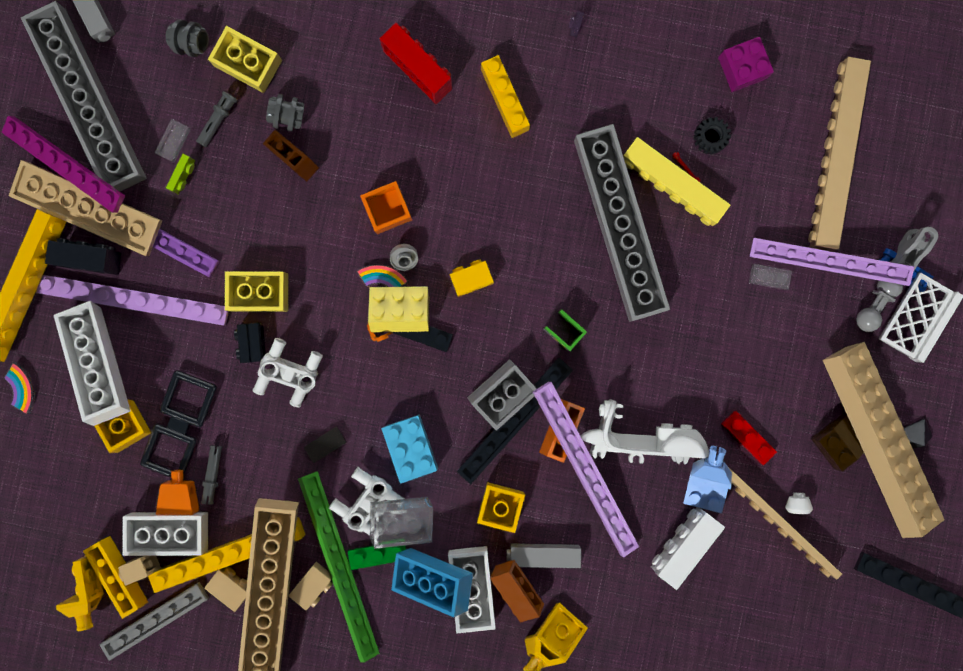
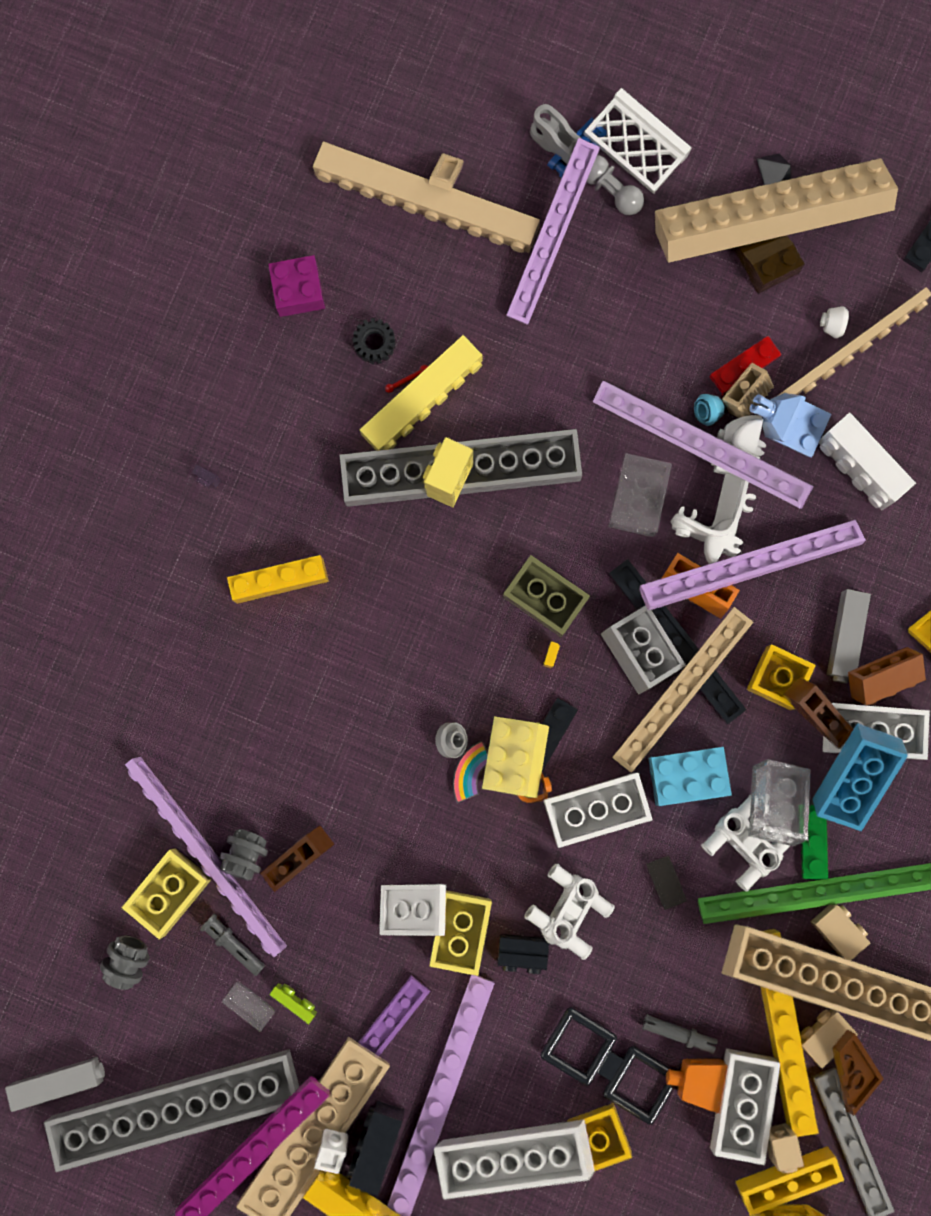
camera: 75 degrees left, 5 degrees down
(74, 223) = (331, 1151): none -> white bracket
(206, 614) = (855, 1071): none -> reddish brown wing
(266, 251) = (412, 910): none -> white plate
(280, 83) = (199, 848): none -> lavender plate
(370, 380) = (597, 809): none -> white brick
(386, 207) = (386, 749): orange piece -> none
(416, 63) = (216, 679): red brick -> none
(471, 278) = (493, 661): yellow brick -> none
(477, 431) = (682, 689): none -> tan plate
(477, 541) = (818, 711): none -> reddish brown slope
(485, 323) = (551, 655): none -> yellow tile
(531, 310) = (546, 596): none -> olive brick
(574, 324) = (590, 546): bright green piece -> none
(614, 210) = (449, 471): none -> light yellow brick
(626, 370) = (639, 495): none -> clear brick
(676, 414) = (703, 444): none -> lavender plate
(707, 414) = (708, 409): none -> medium azure cone
(734, 444) = (751, 383): none -> tan brick
(770, 277) = (556, 304): clear plate -> none
(864, 166) = (446, 172): none -> tan tile

